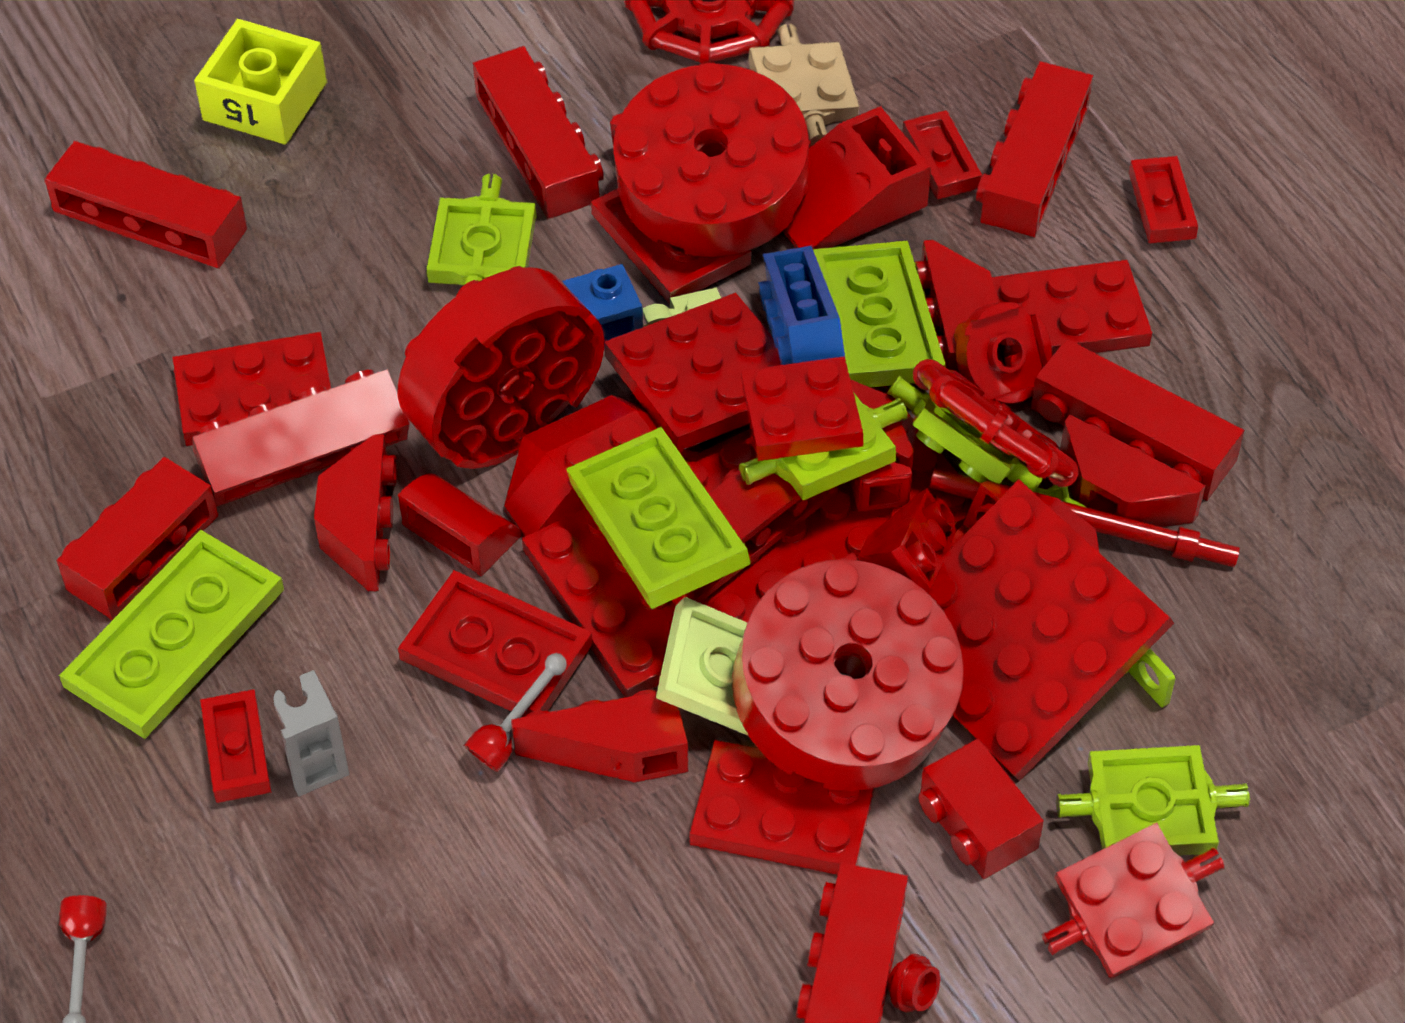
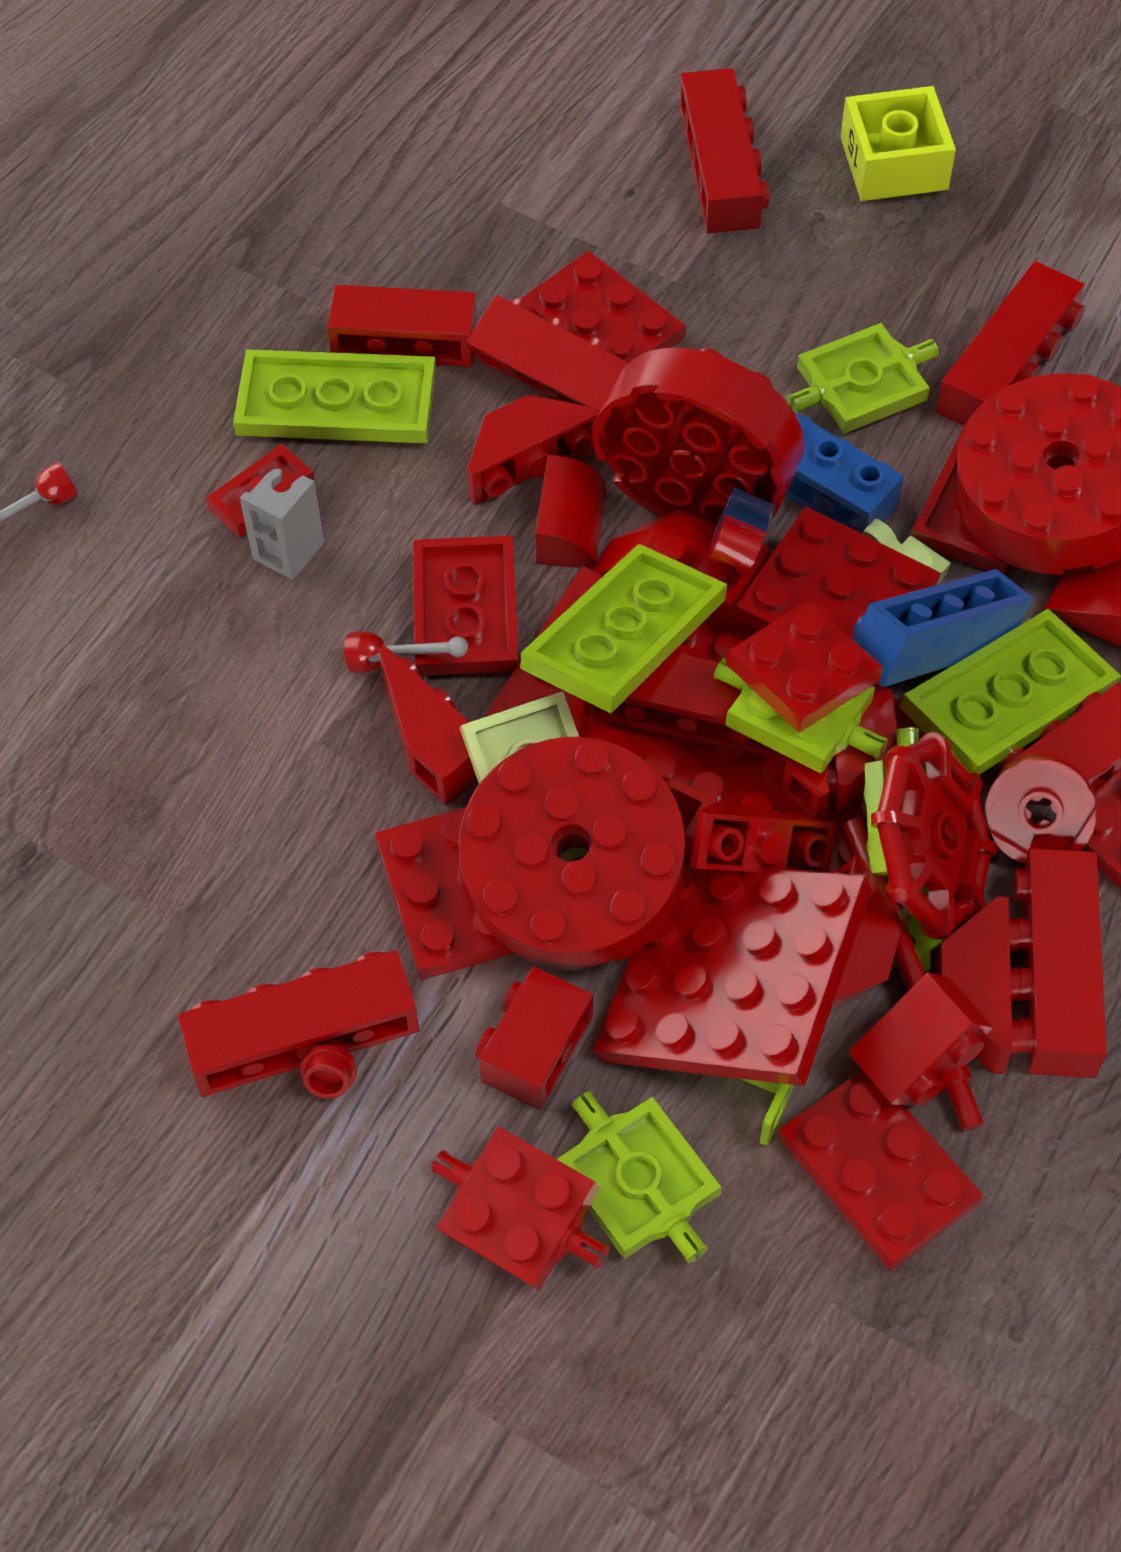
camera: 60 degrees right, 5 degrees up
(611, 396) = (740, 530): none -> red leg
(1163, 537) = (921, 1041): none -> red brick
(1239, 636) = (880, 1169): none -> red plate

